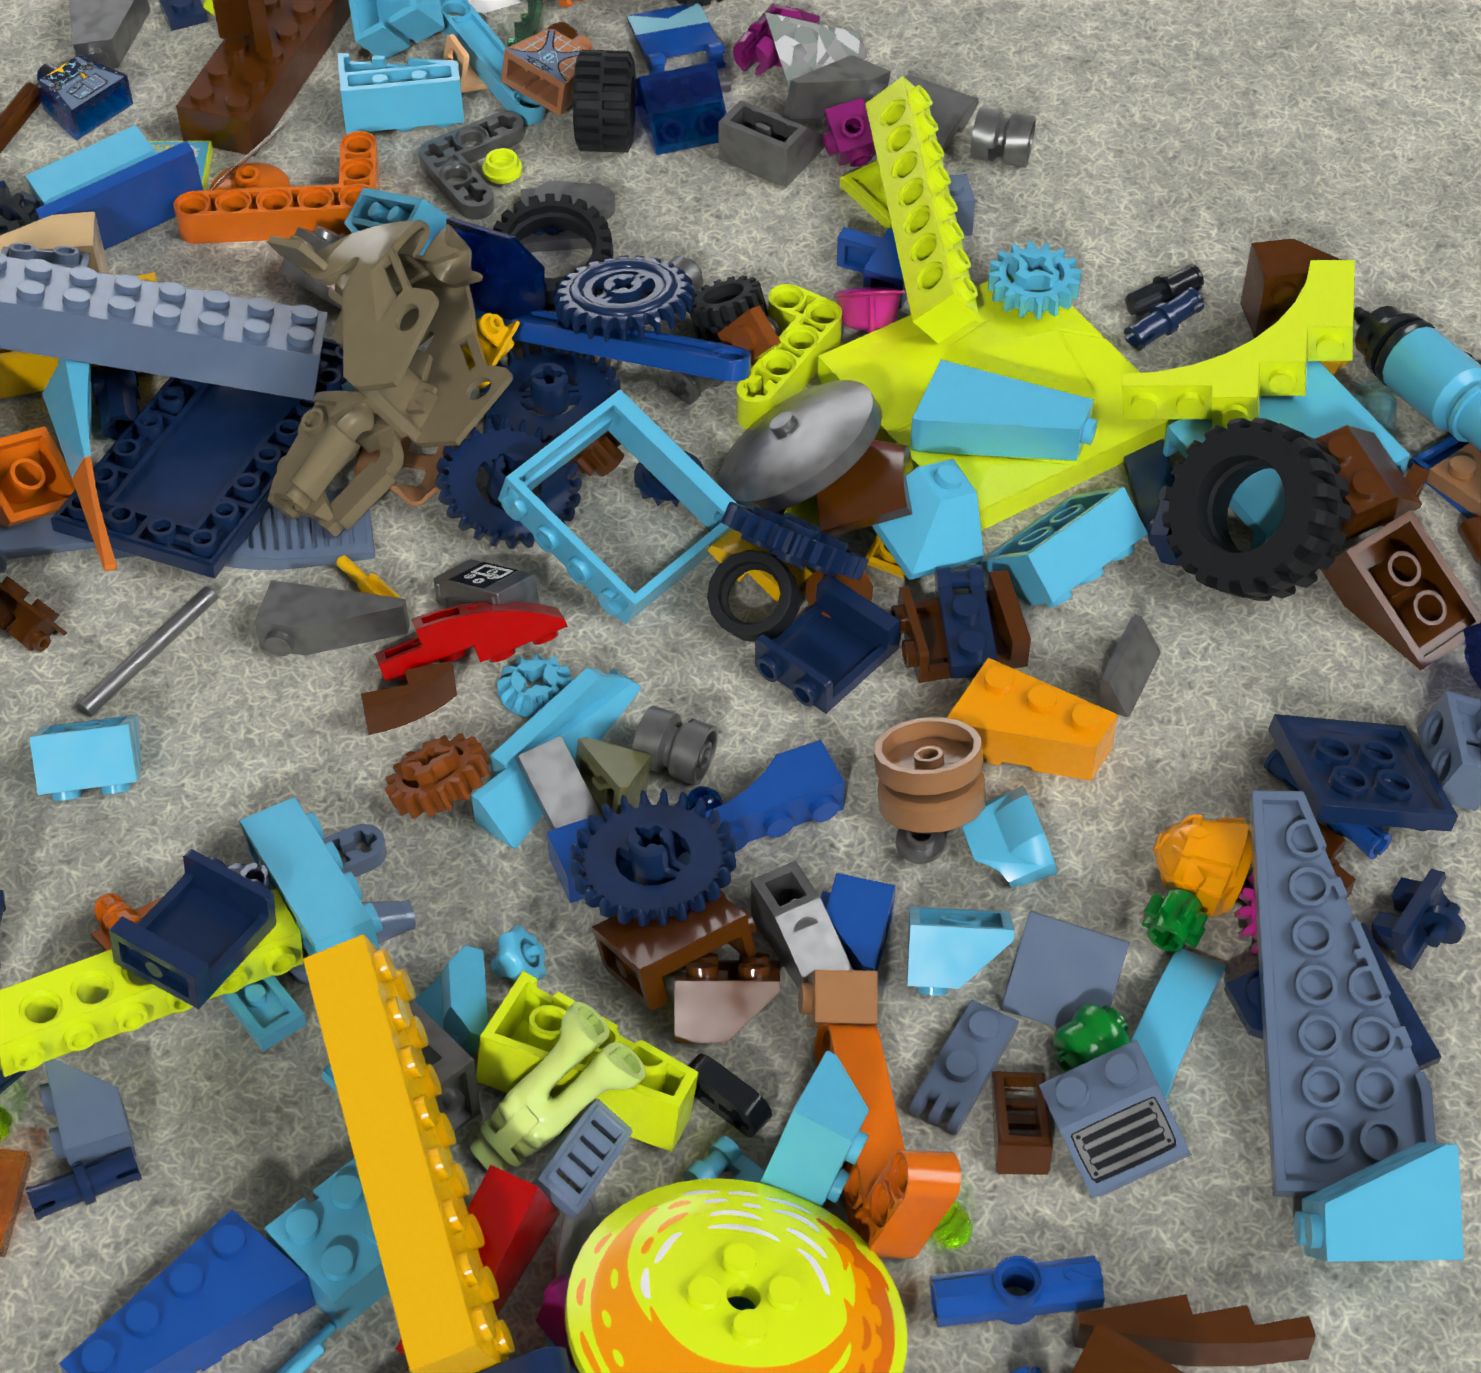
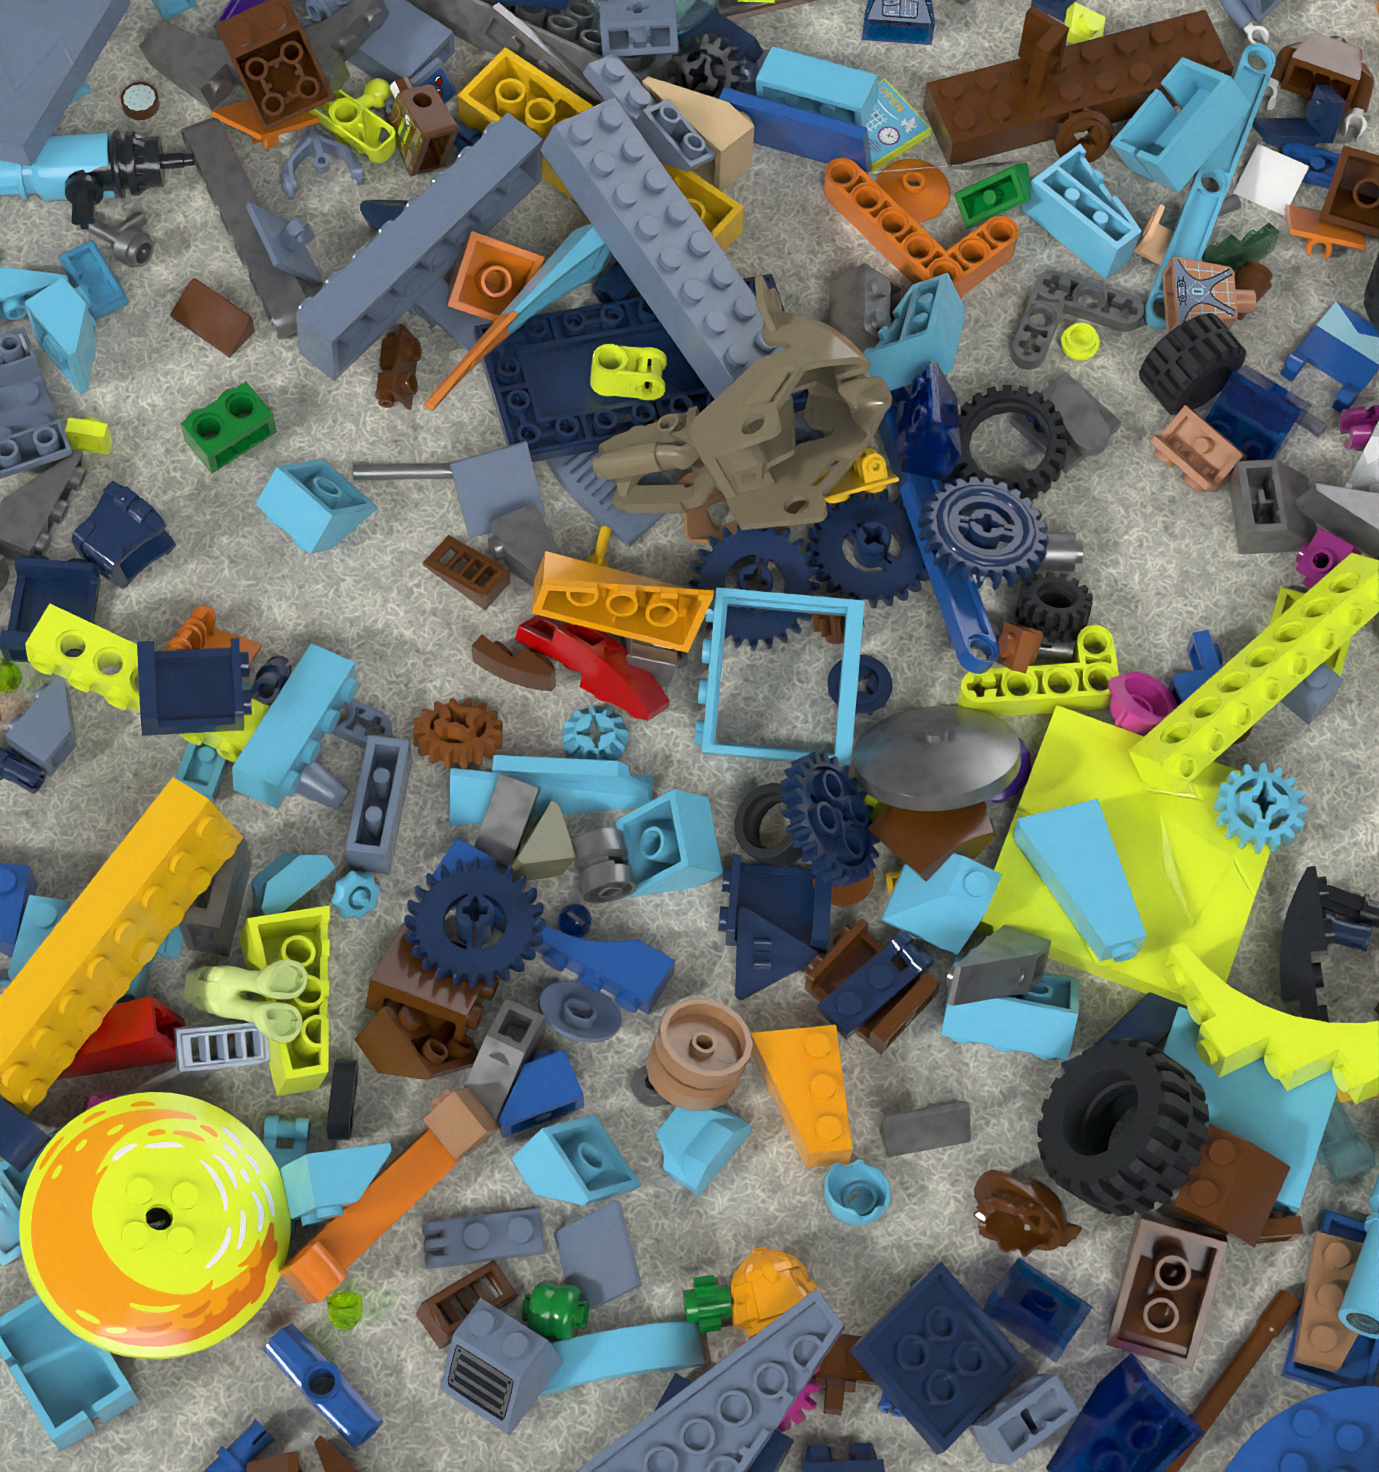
camera: 50 degrees right, 15 degrees up
(221, 438) = (625, 370): none -> neon yellow piece
(222, 603) = (495, 486): none -> sand blue piece
(294, 690) = (481, 595): none -> reddish brown slope
(321, 132) = (994, 195): none -> green slope
(326, 41) = (1087, 120): none -> reddish brown gear
(441, 567) = (618, 602): none -> light orange wedge
(451, 877) = (378, 804): none -> sand blue brick
(675, 152) = (1197, 450): none -> nougat bracket
(699, 682) = (671, 843): none -> medium azure slope
(807, 845) = (579, 1012): none -> sand blue dish
(866, 683) = (765, 954): none -> dark blue piece
(1030, 513) = (999, 967): none -> flat silver slope
(1162, 742) = (868, 1204): none -> medium azure hair
(1167, 320) = (1306, 937): none -> black slope
(1261, 633) = (1010, 1204): none -> reddish brown hair
(1365, 691) = (1036, 1309): none -> clear blue slope

